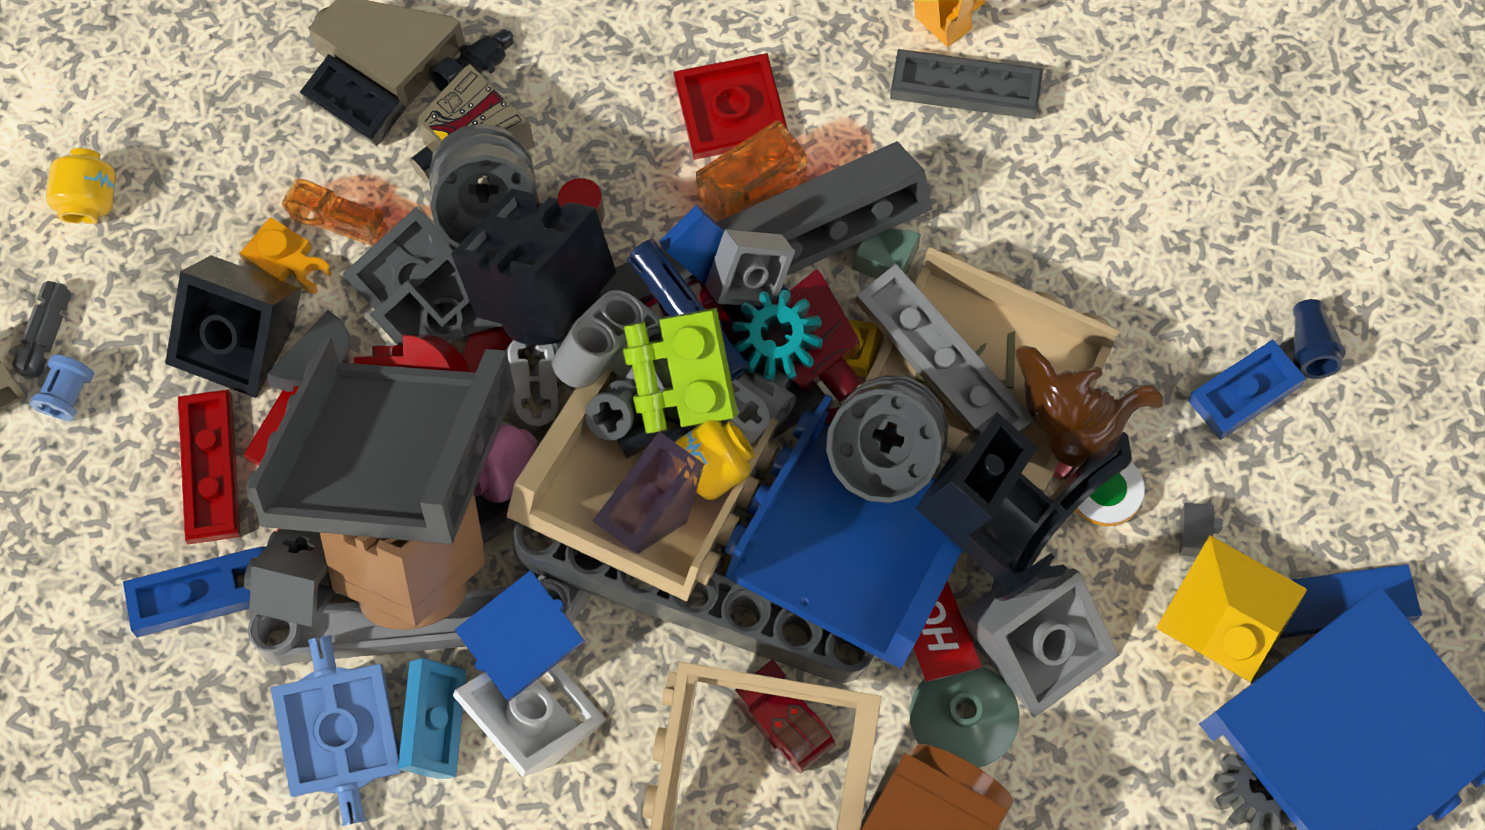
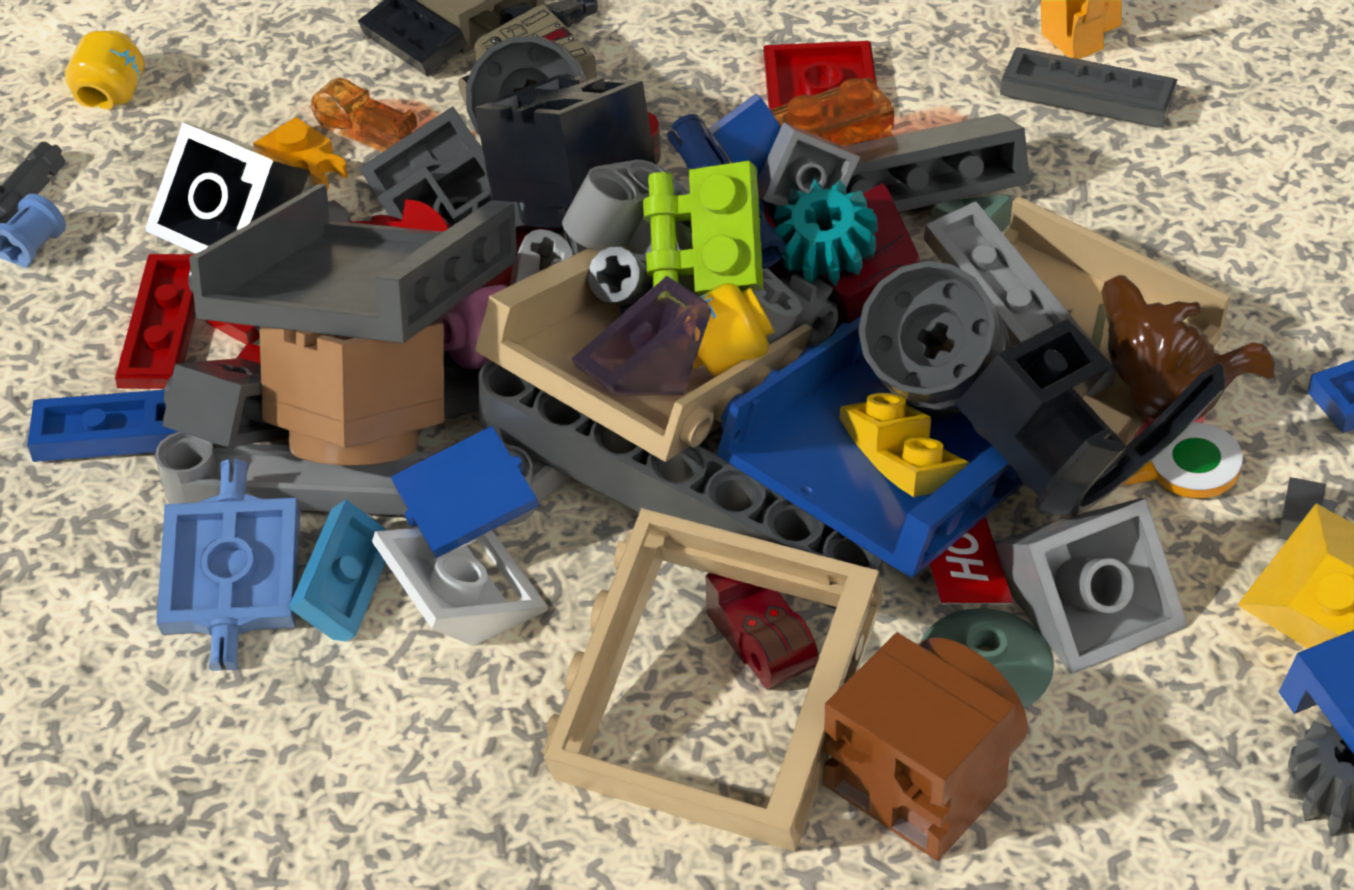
camera: 10 degrees right, 20 degrees down
(873, 537) = (900, 443): none -> yellow slope

